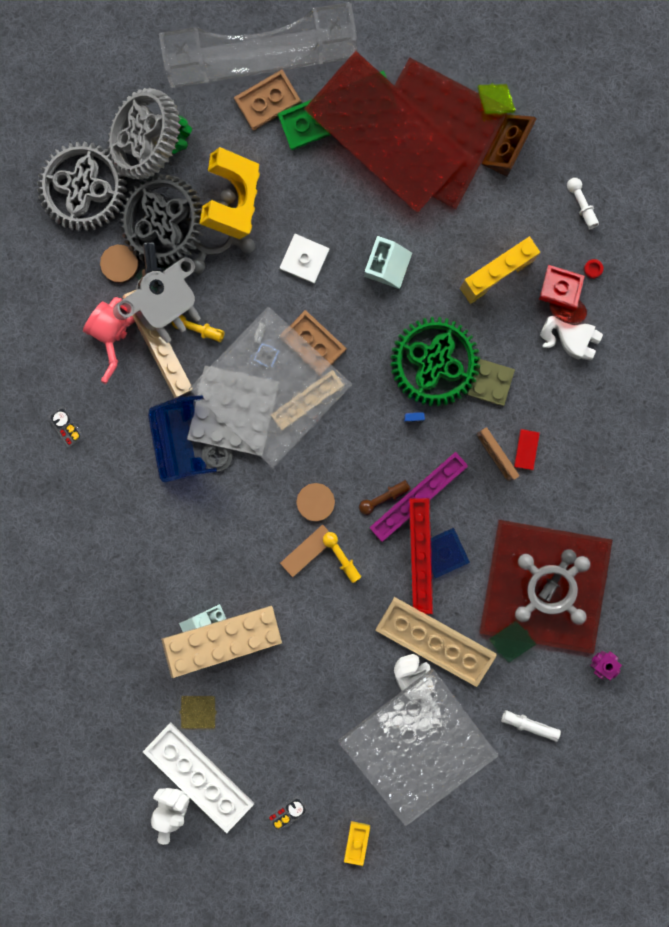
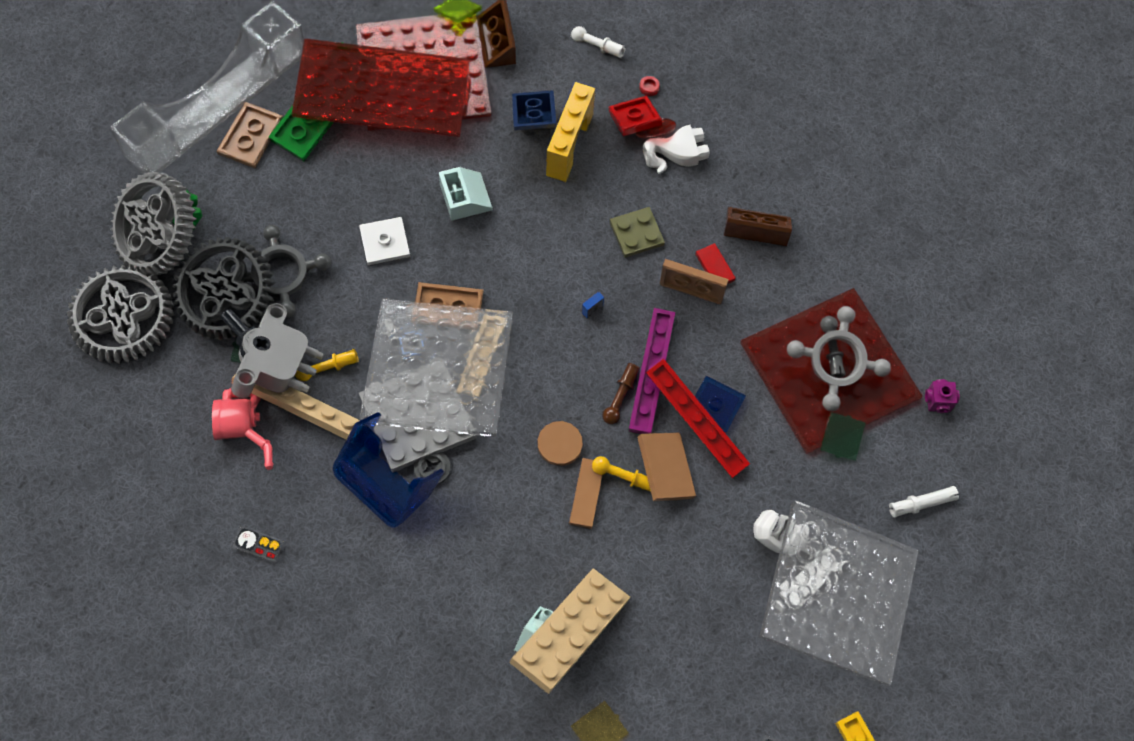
camera: 40 degrees left, 20 degrees down
(119, 263) = (206, 359): medium nougat tile -> none
(244, 176) = (273, 203): yellow arch -> none
(373, 573) = (666, 466): none -> medium nougat tile
(435, 642) = (773, 486): tan plate -> none
(450, 329) = (577, 236): green gear -> none
(484, 235) = (534, 110): none -> dark blue slope
(583, 441) = (758, 226): none -> reddish brown slope

